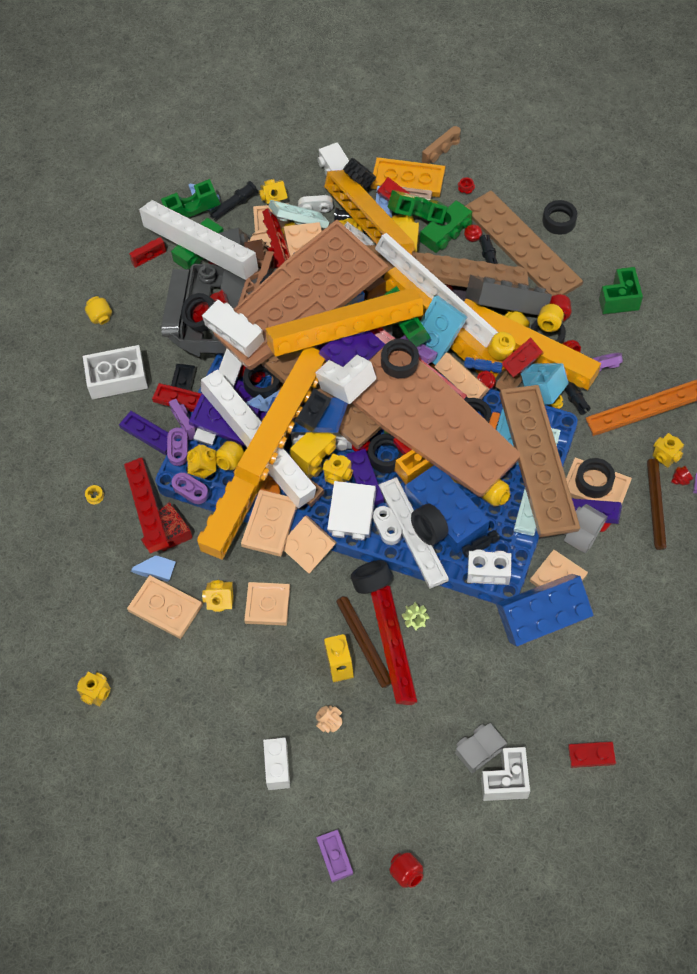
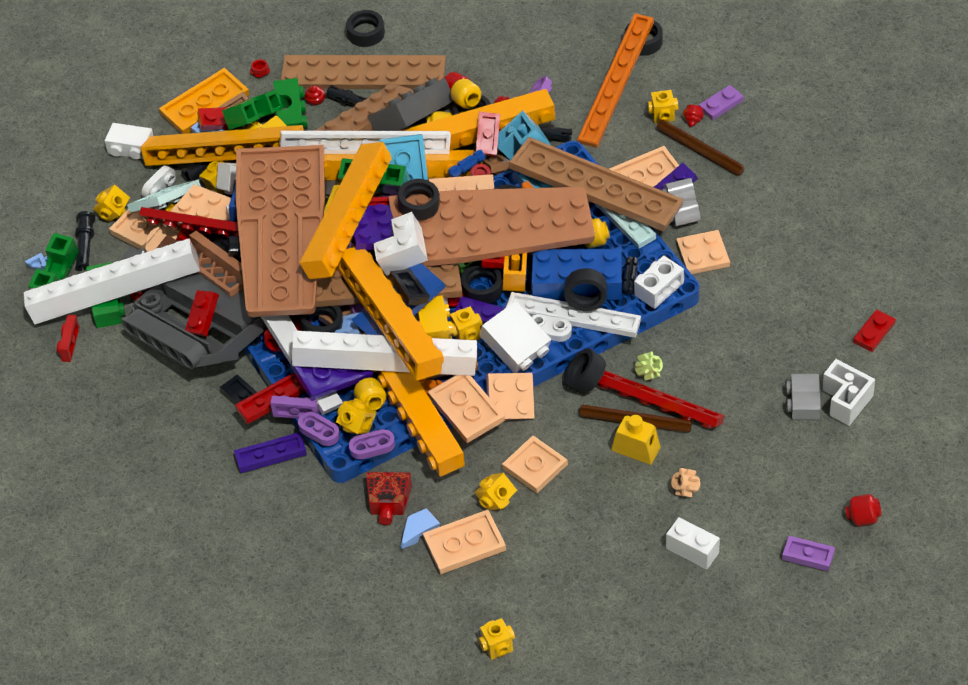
camera: 50 degrees left, 10 degrees down
(94, 488) = (292, 526): yellow bush -> none
(98, 310) = (93, 413): yellow head -> none
(115, 372) = (180, 436): white brick -> none
(146, 505) = (351, 490): red plate -> none
(189, 306) = (198, 303): black tyre -> none
(233, 328) = (267, 290): white brick -> none
(359, 173) = (168, 125): black tyre -> none
(441, 145) = (199, 56): medium nougat plate -> none
(501, 345) = (463, 138): yellow head -> none
(544, 609) = (727, 274): blue brick -> none
(595, 464) = (644, 153): black tyre -> none
(624, 294) = (488, 35): green brick -> none

